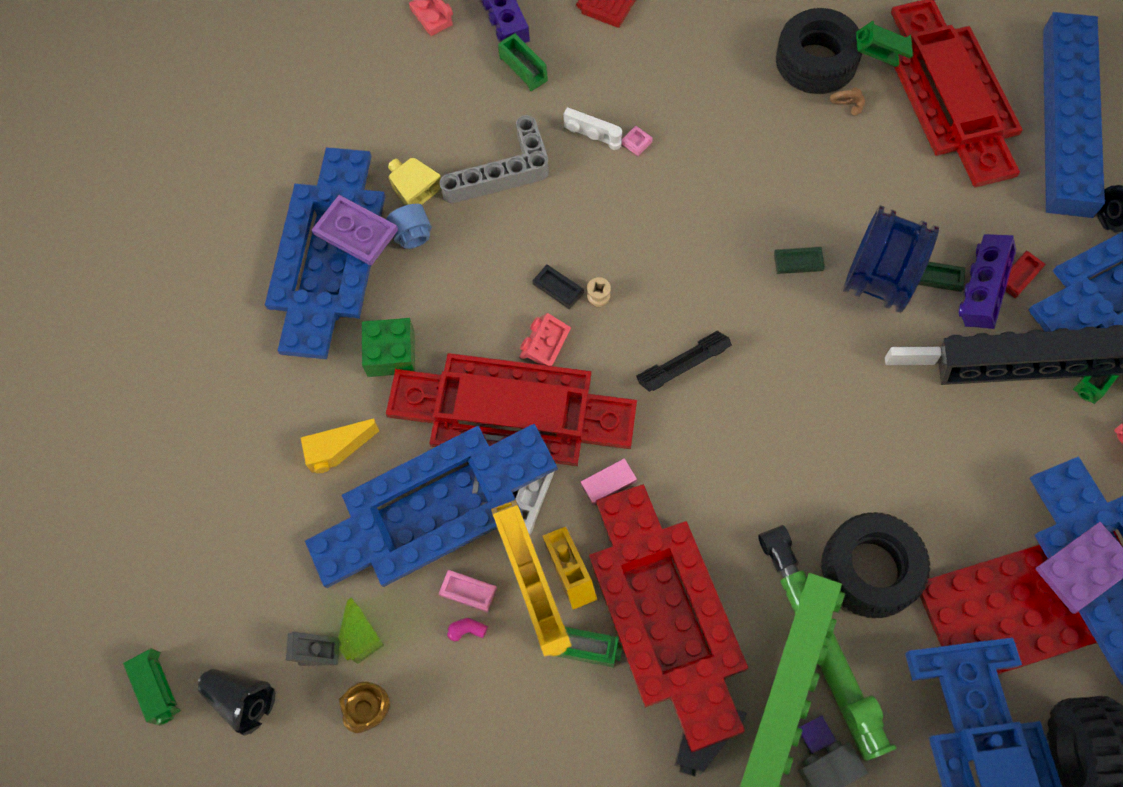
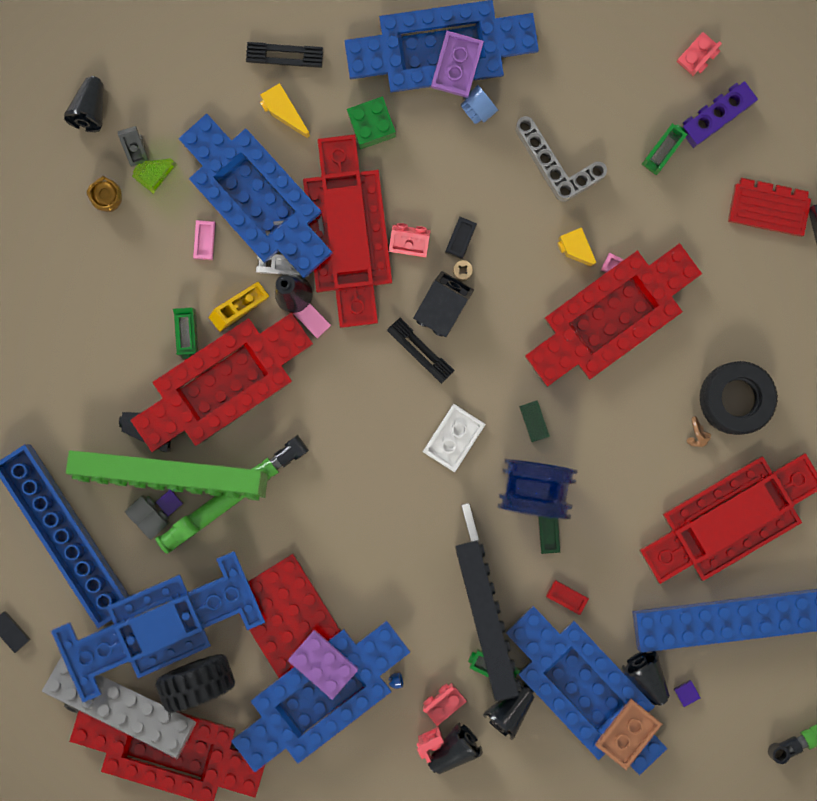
camera: 70 degrees right, 20 degrees up
(151, 687) = (79, 46): green window -> none
(252, 460) = (257, 54): none -> black container
(413, 181) = (521, 93): light yellow torso -> none
(464, 626) = (179, 246): dark pink arm -> none
(531, 579) = (211, 284): yellow arch -> none
(571, 493) = (293, 293): none -> black cone
(593, 128) = (611, 227): white plate -> none
(606, 167) = (576, 247): none -> yellow slope
(635, 320) = (443, 304): none -> black slope
(686, 157) = (580, 335): none -> red piece
(801, 352) = (454, 438): none -> white tile
(883, 44) = (750, 450): green window -> none
(899, 542) = (267, 525): black tyre -> none
(993, 264) = (541, 576): dark purple brick -> none
(1109, 491) = (396, 680): none -> blue hinge

